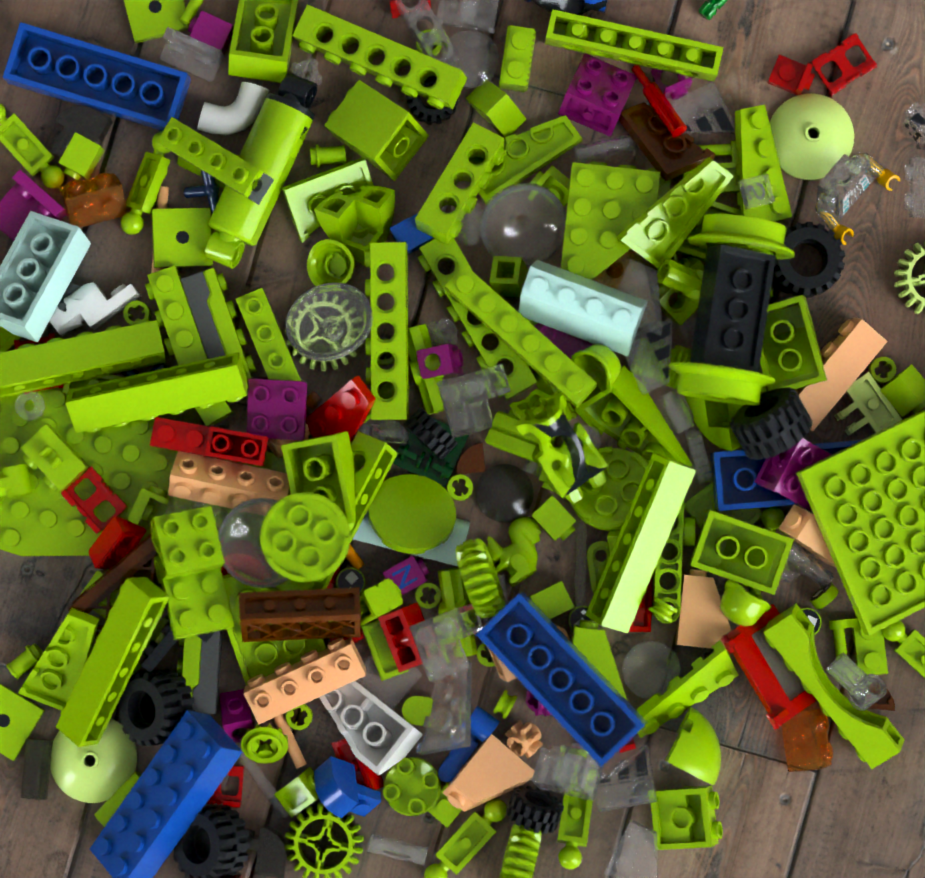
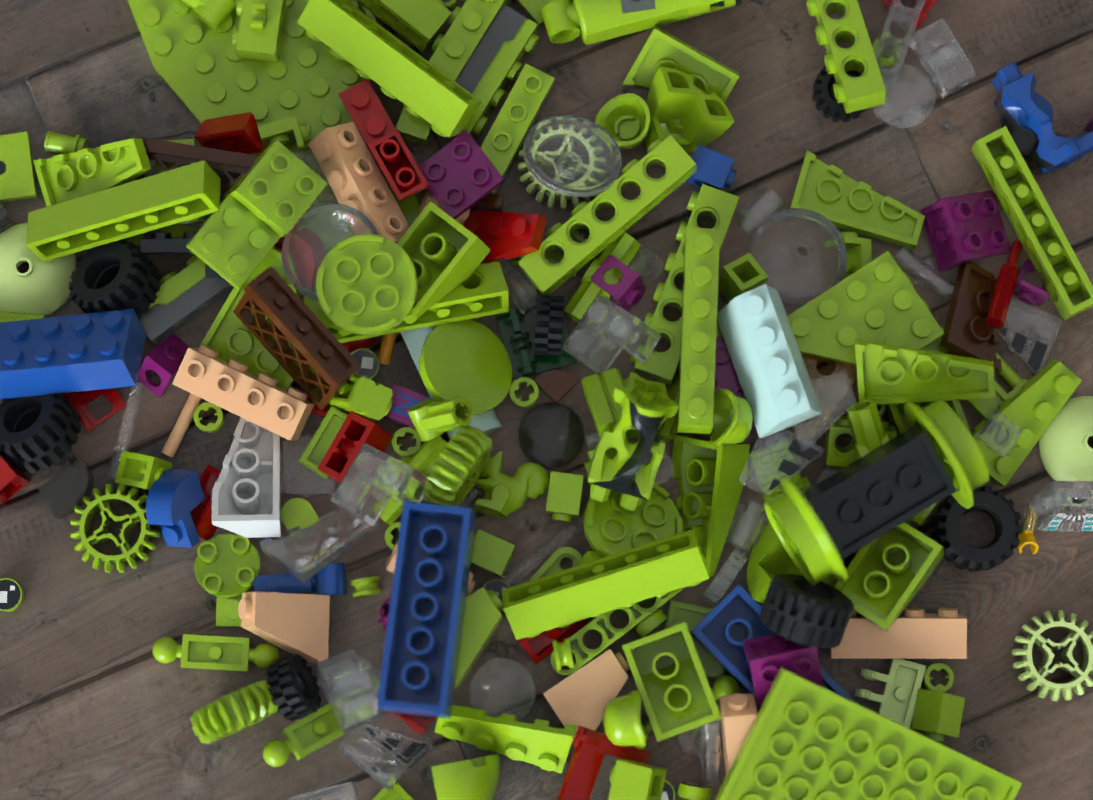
camera: 50 degrees right, 5 degrees down
(87, 507) = (263, 89): red piece -> none
(264, 753) = (152, 413): lime gear -> none
(327, 155) = (716, 43): lime pin -> none
(376, 129) = (774, 66): lime slope -> none
(397, 849) = (161, 598): clear pin -> none
(433, 563) = (436, 418): none -> lime piece
(476, 143) = (833, 157): lime brick -> none
(496, 108) = (879, 154): lime slope -> none
(517, 58) = (937, 134): lime brick -> none
(524, 739) = (348, 628): light nougat gear -> none

